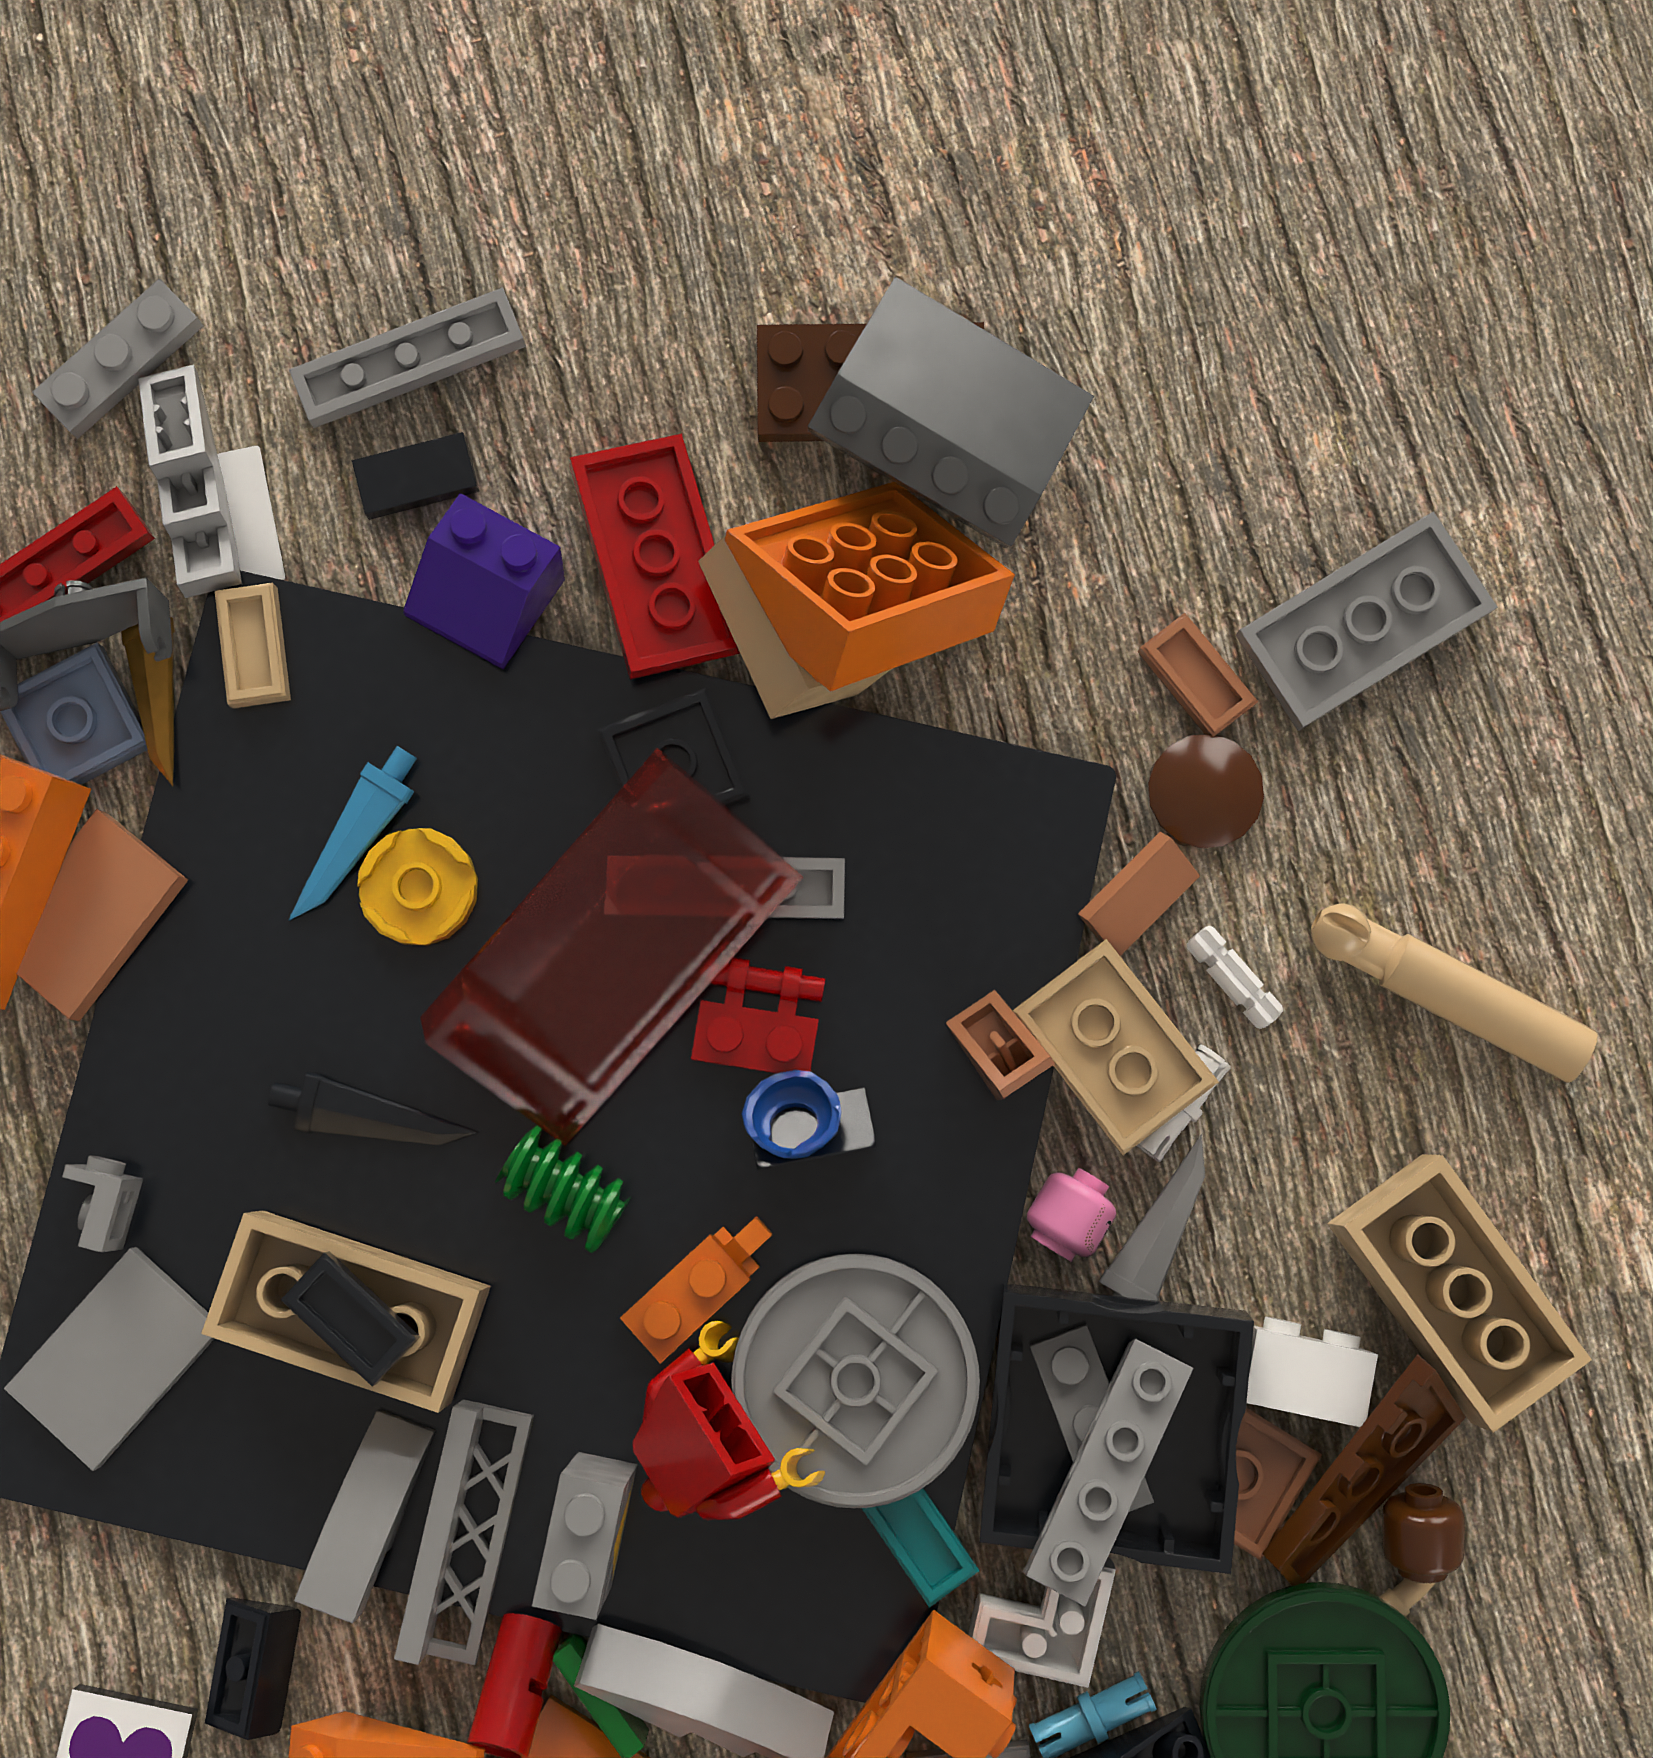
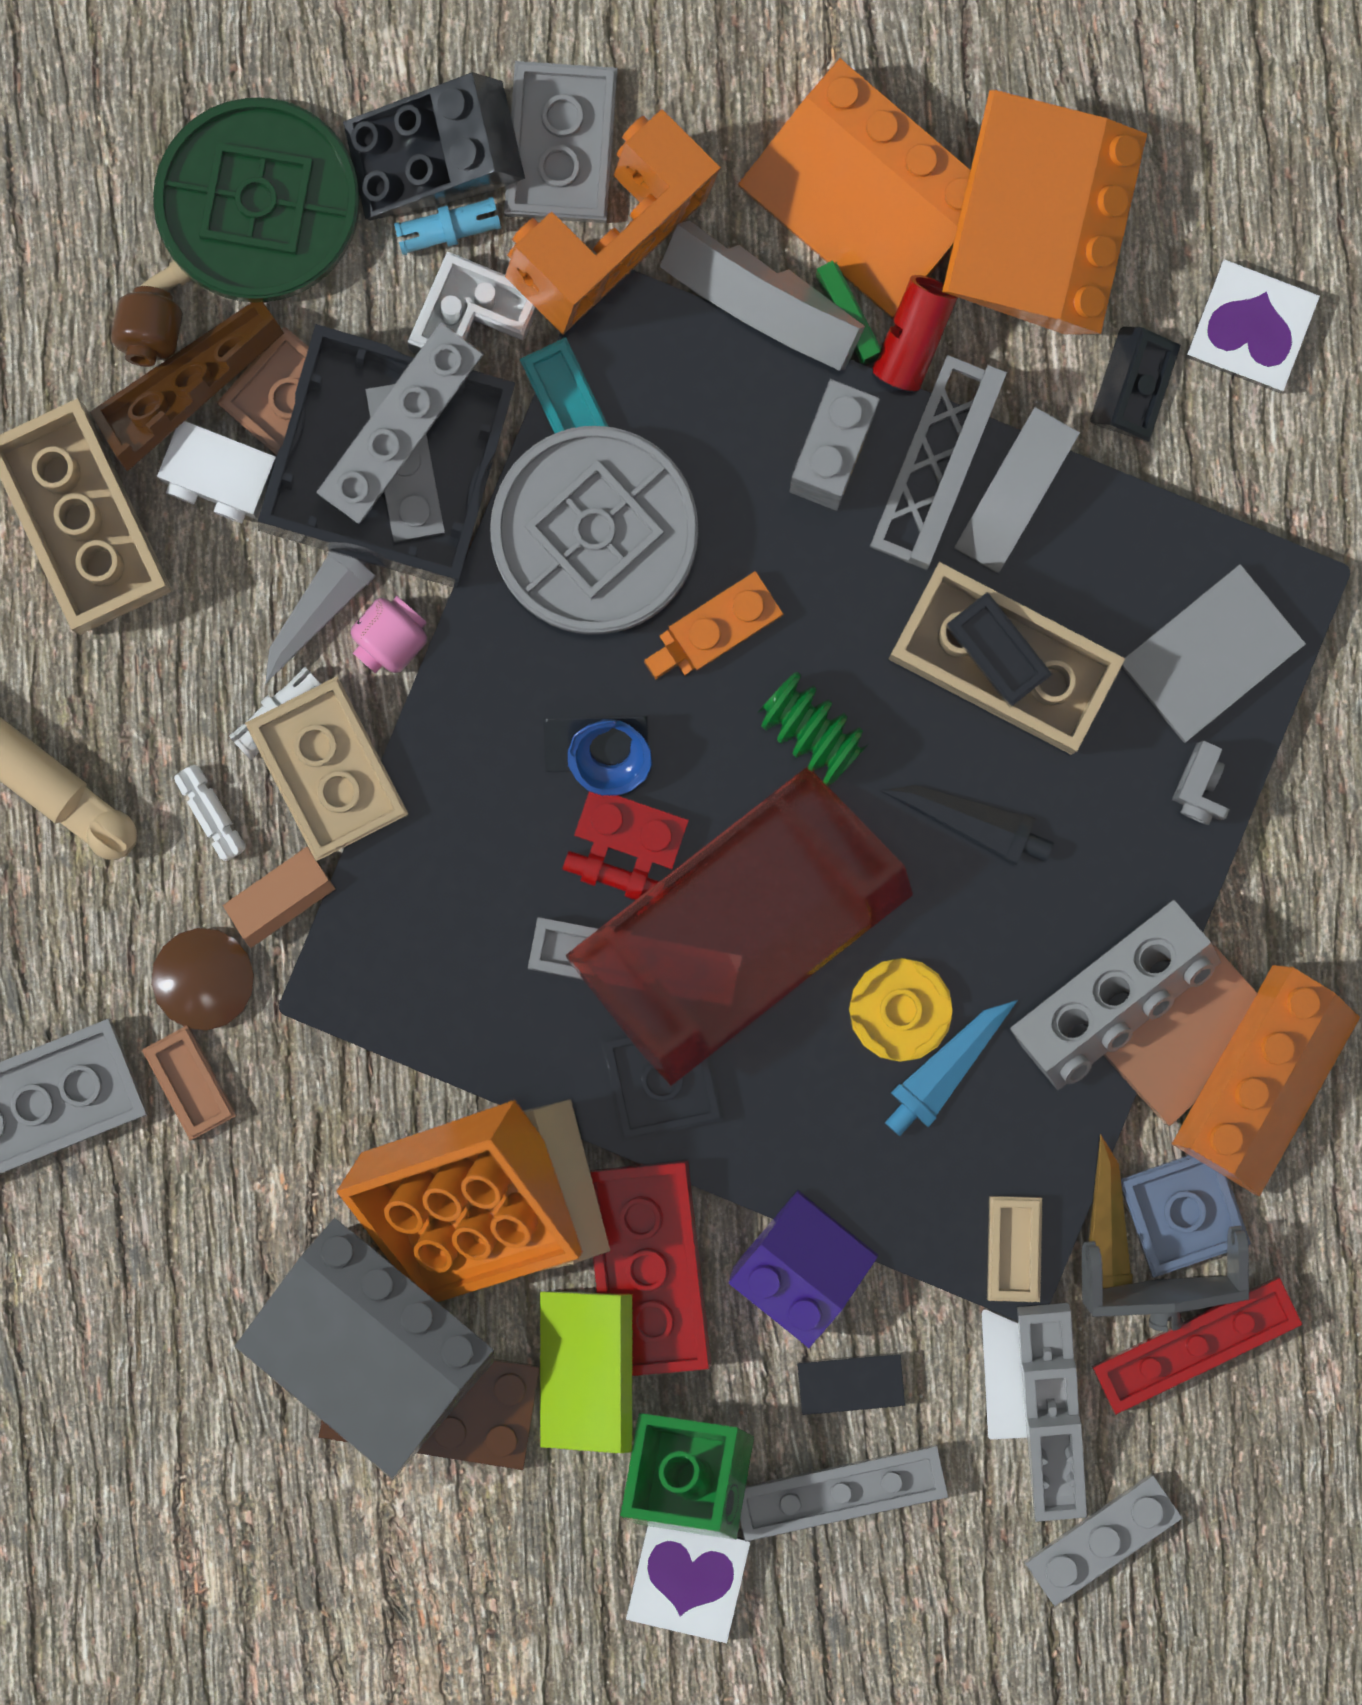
camera: 165 degrees left, 5 degrees up
(115, 1018) = (1124, 968): none -> light grey brick
(560, 244) = (688, 1582): none -> tile
(573, 335) = (687, 1476): none -> green brick
(702, 1443) = (729, 500): red torso -> none
(703, 433) = (586, 1371): none -> lime tile
(999, 1045) = (424, 786): nougat slope -> none

